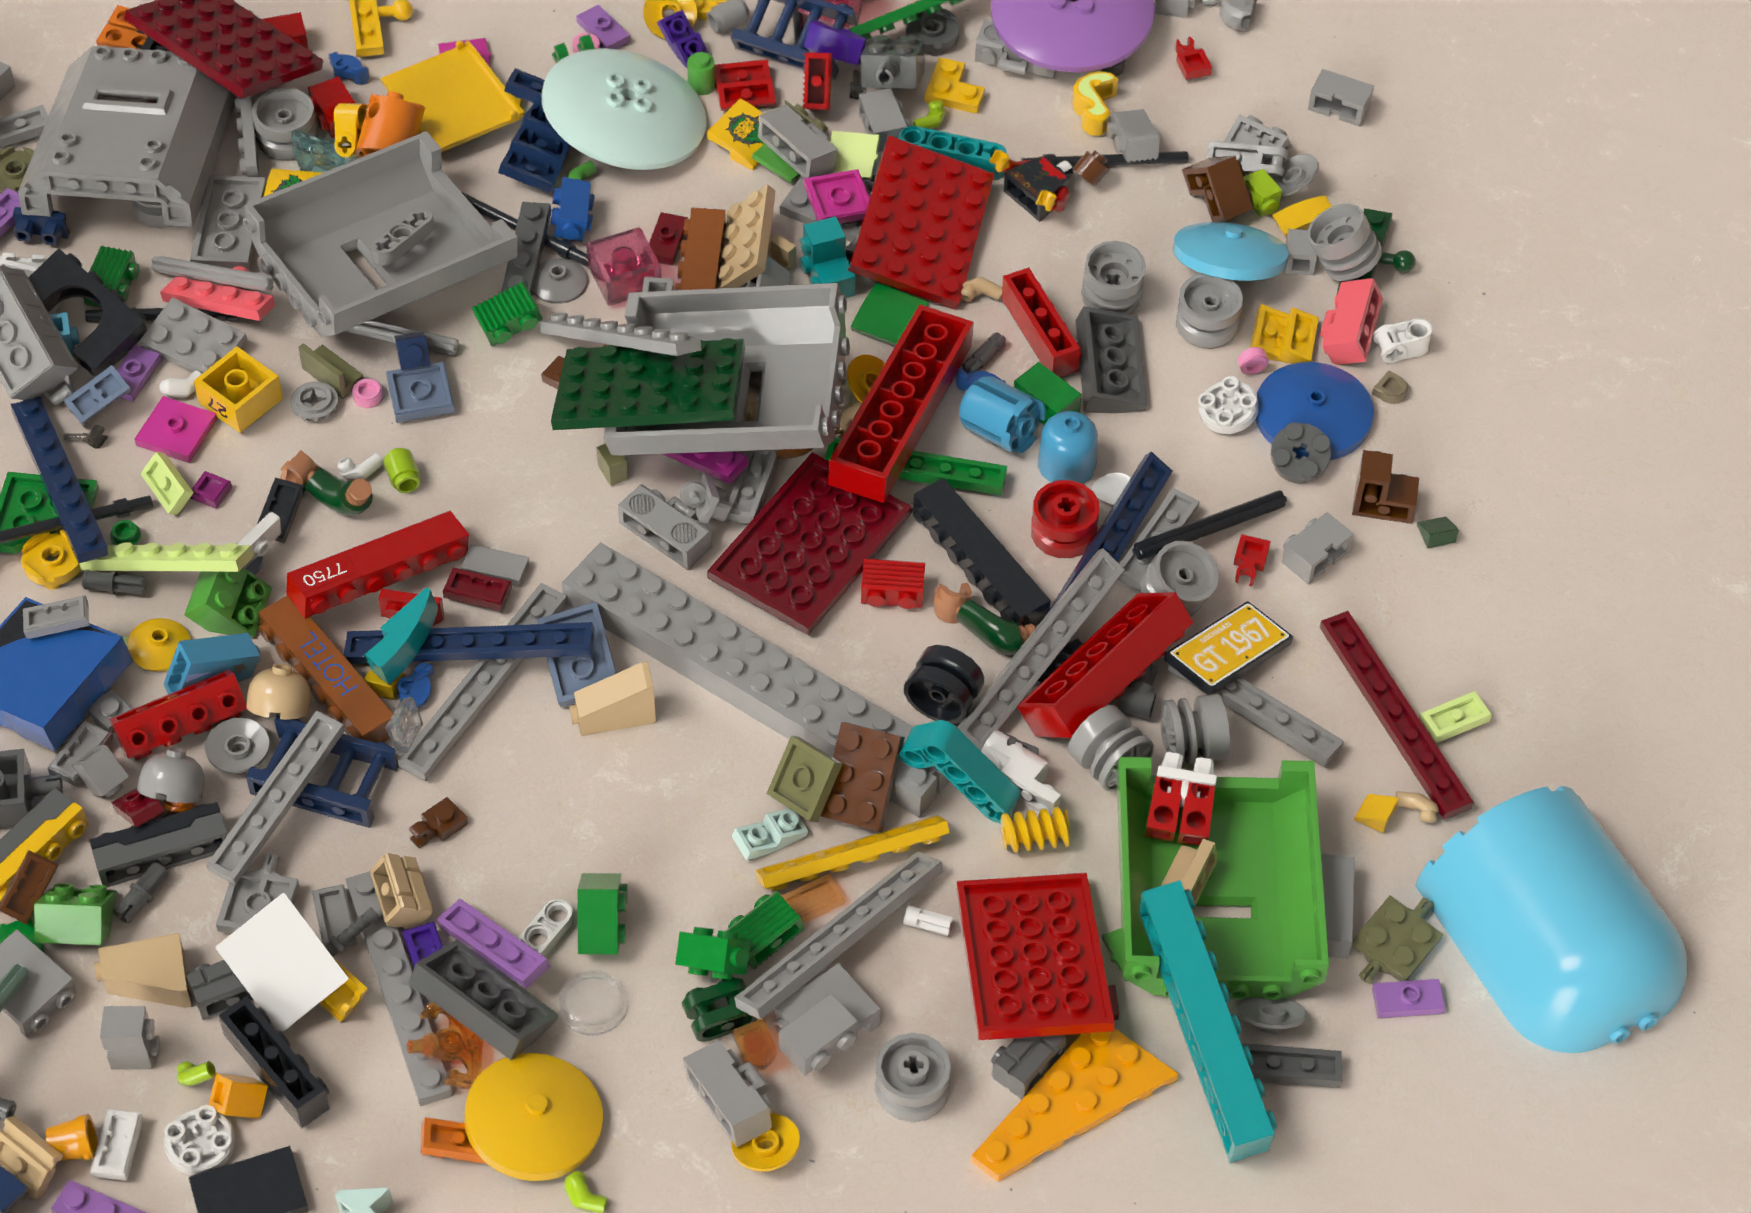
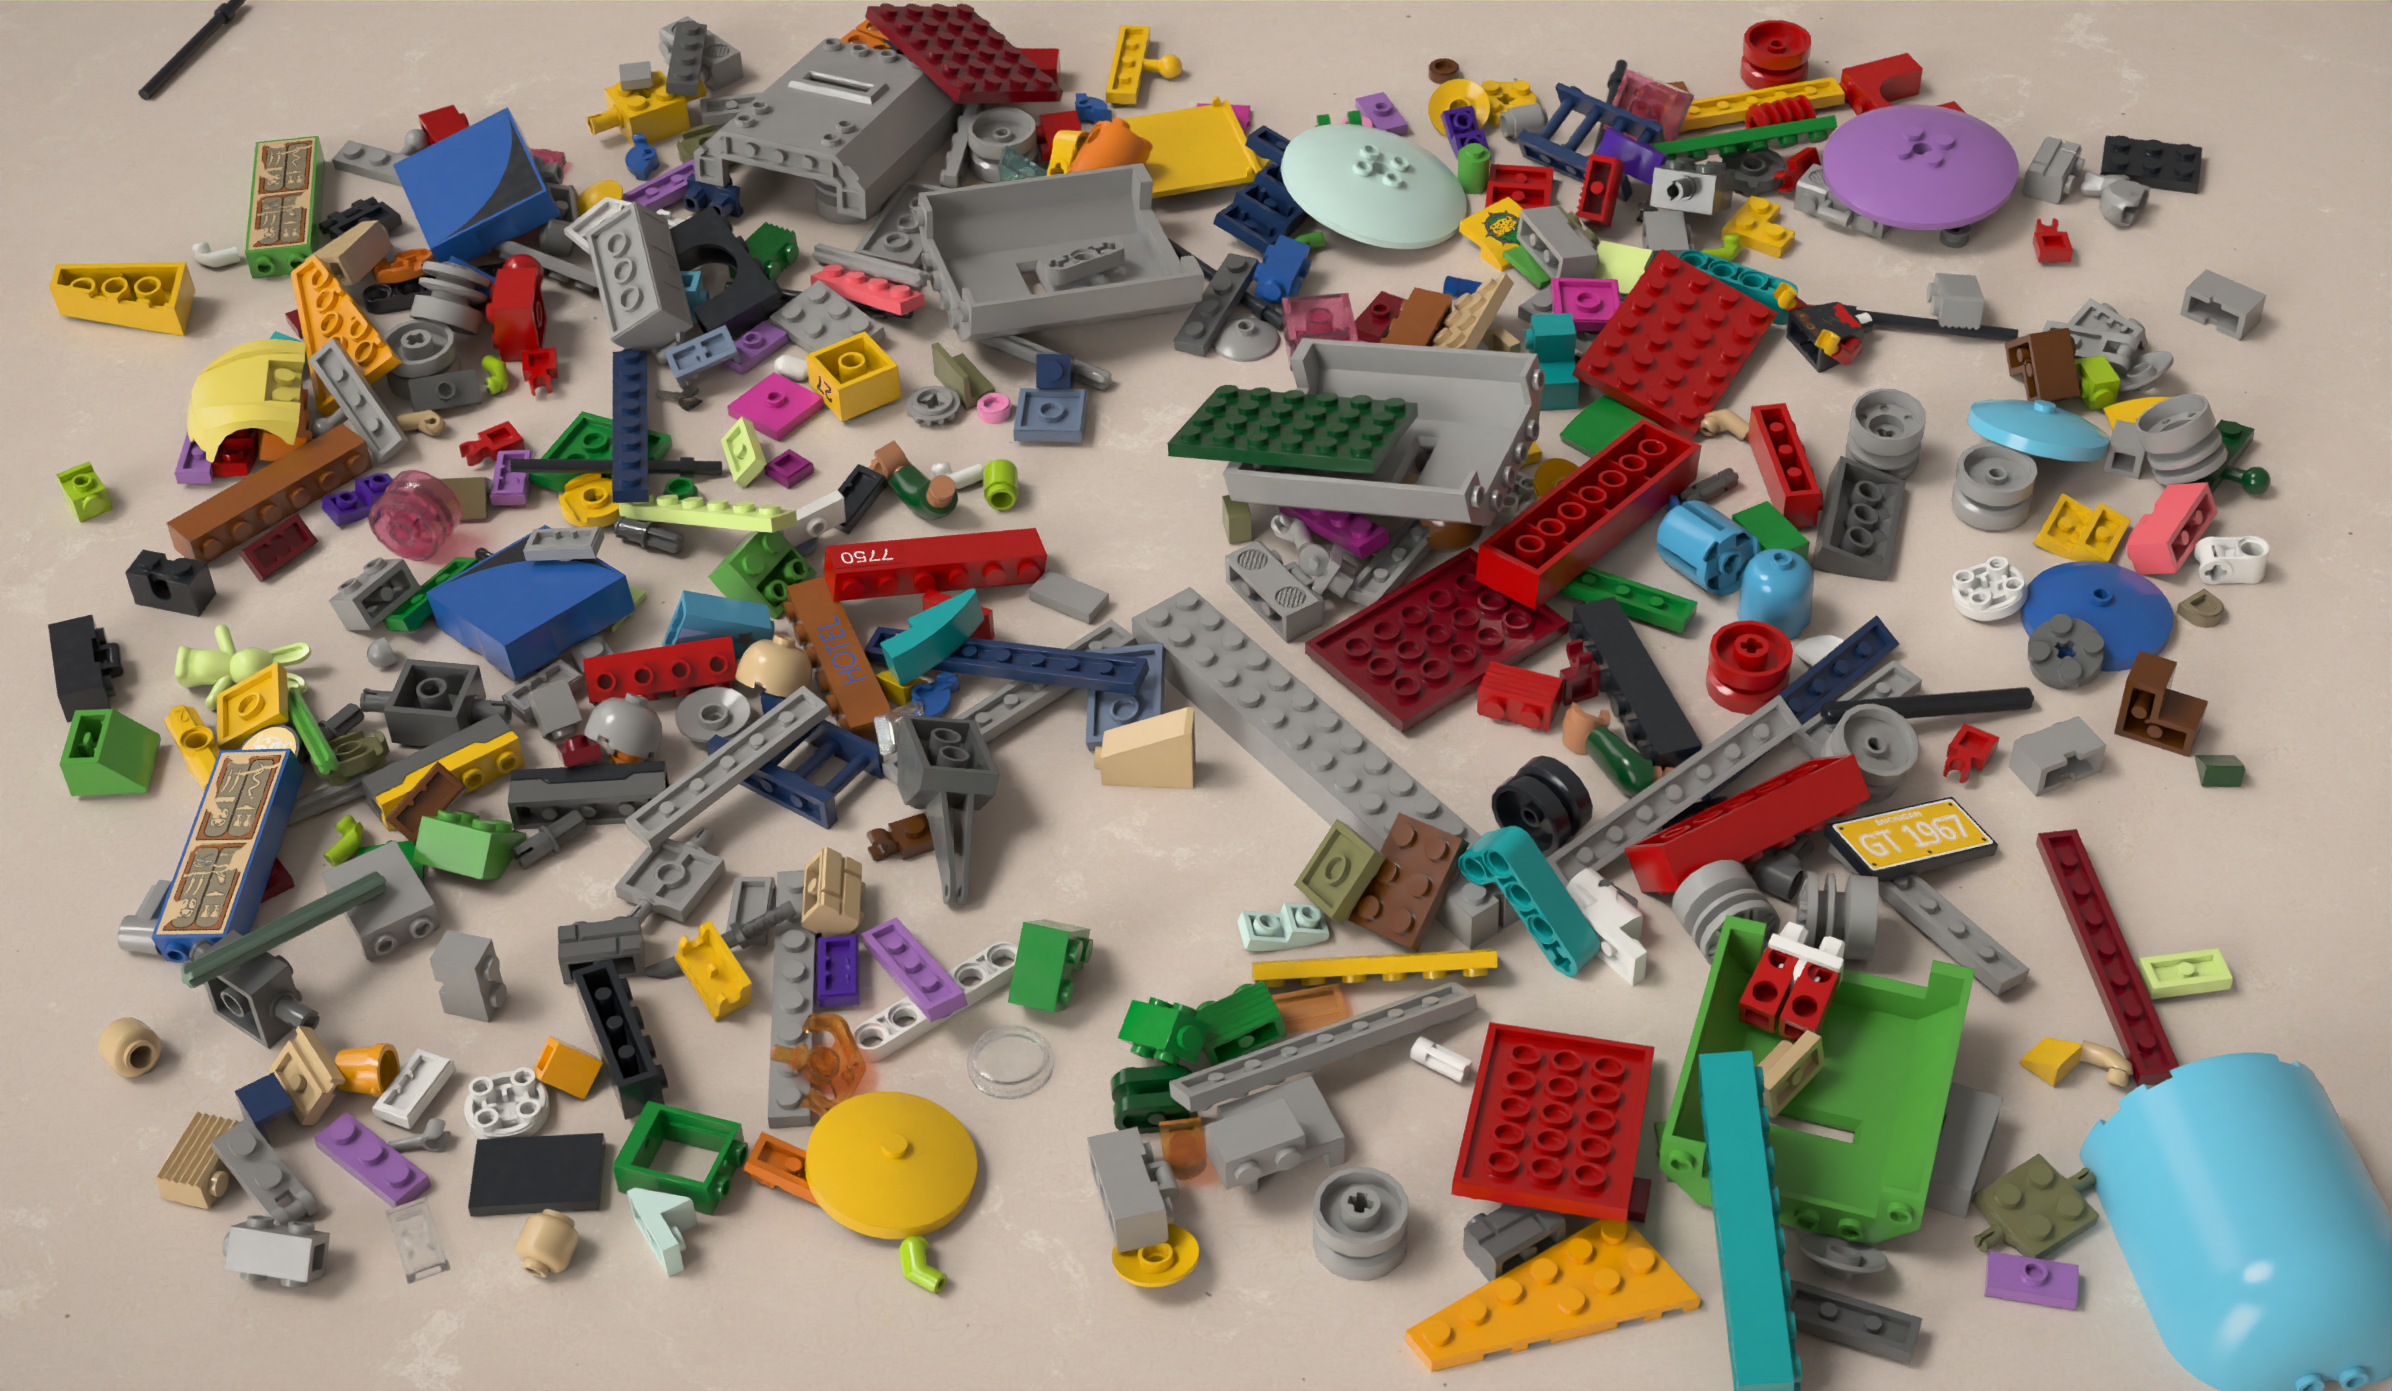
camera: 20 degrees right, 10 degrees down
(146, 970) = (521, 916): tan slope -> none
(150, 1184) = (433, 1138): none -> light grey hand
(152, 653) = (659, 600): yellow dish -> none
(189, 1074) = (525, 1033): lime arm -> none
(281, 962) = (663, 932): white sticker -> none
(362, 1125) = (686, 1127): none -> green window
(464, 760) = (943, 769): none -> dark grey slope
(477, 589) = (1039, 614): dark red plate -> none
(482, 998) = (878, 1023): dark grey slope -> none
(507, 314) = (1172, 355): green brick -> none
(620, 335) = (1282, 378): light grey plate -> none
(663, 464) = (1292, 531): none -> white arm
(729, 195) = (1459, 286): none -> clear blue piece
(936, 556) = (1582, 676): none -> dark red plate
(972, 24) = (1797, 168): none -> red plate
(1035, 829) = (1606, 986): yellow piece -> none
(1089, 99) = (1916, 261): yellow animal -> none
(1092, 167) = (1896, 324): reddish brown plate -> none
(1253, 360) = (2034, 548): bright pink tile -> none

